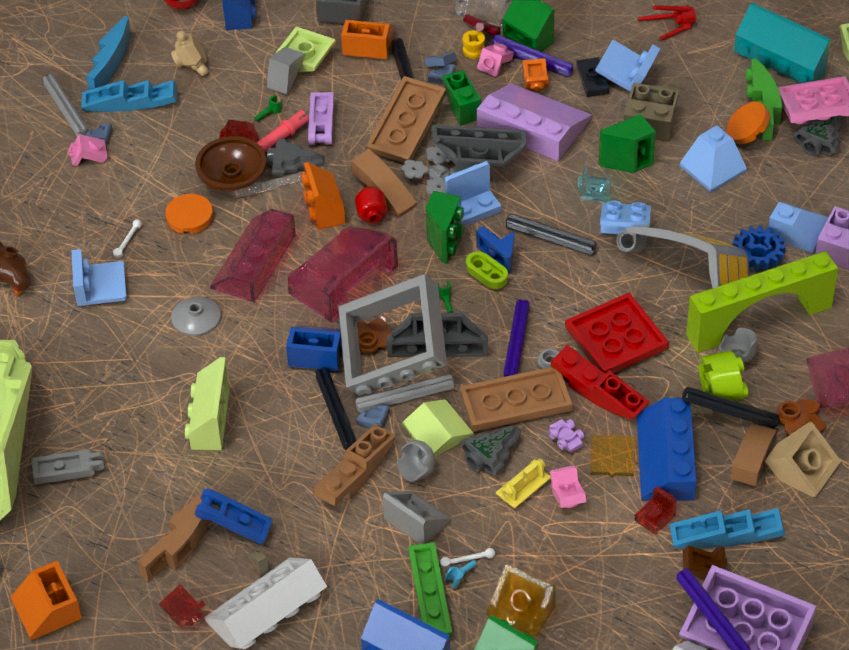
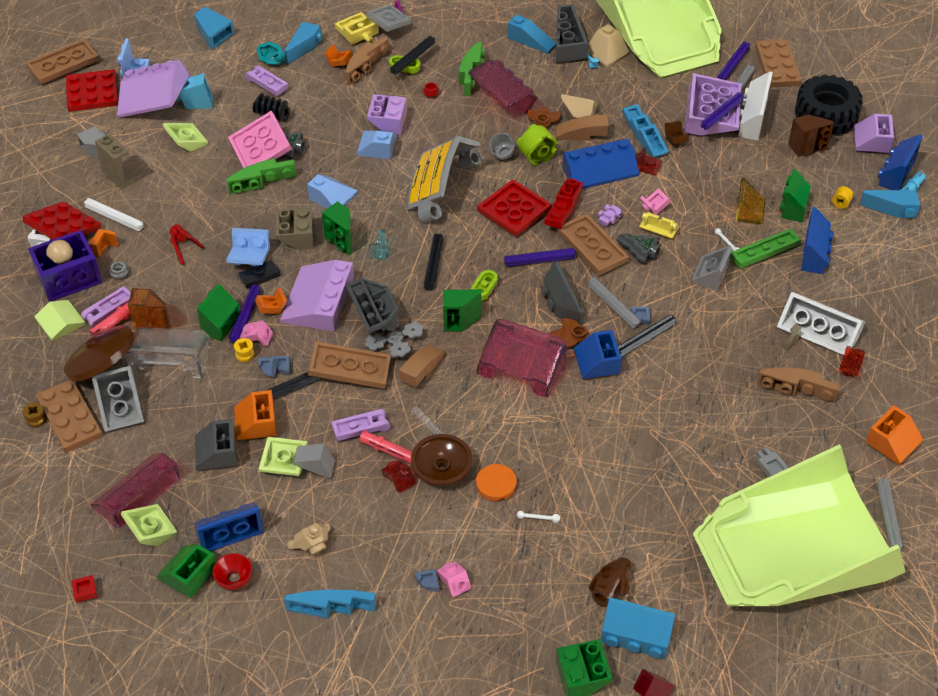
camera: 110 degrees left, 0 degrees up
(65, 105) = (401, 619): light grey axle -> none
(97, 281) = (596, 515): light blue bracket -> none
(121, 97) = (377, 570): dark azure slope -> none
(196, 316) = (593, 451): light grey dish -> none
(209, 407) = (687, 394): yellowish green slope -> none
(233, 516) = (772, 353): blue plate -> none
(256, 255) = (526, 421): clear pink slope -> none
(274, 107) = (353, 465): green hand -> none
(290, 158) = (412, 429): dark grey rock -> none
(322, 196) = (455, 392): orange slope -> none
(358, 465) = (687, 308): medium nougat slope -> none
(371, 204) = (448, 362): red head -> none
(380, 302) = (564, 303): light grey window -> none
(417, 461) = (673, 276): light grey hair -> none
(437, 426) = (634, 279): yellowish green slope -> none
(445, 295) = (513, 304): green hand -> none
(456, 574) = (747, 239): medium azure hand -> none
(462, 97) = (315, 331): green slope -> none
(475, 192) = (419, 307): light blue bracket -> none
(481, 26) = (221, 346): dark red piece -> none
(499, 250) = (463, 277): blue slope -> none
(546, 357) = (551, 235): light grey plate -> none
(612, 455) = (612, 193): clear yellow piece -> none
(618, 216) = (416, 211): light blue bracket -> none
(716, 308) = (493, 149): lime arch -> none
(730, 407) = (563, 142): black axle -> none
(748, 122) = (292, 175): orange tile -> none
(759, 247) = (408, 153): blue gear -> none
(782, 45) = (207, 170): teal slope -> none

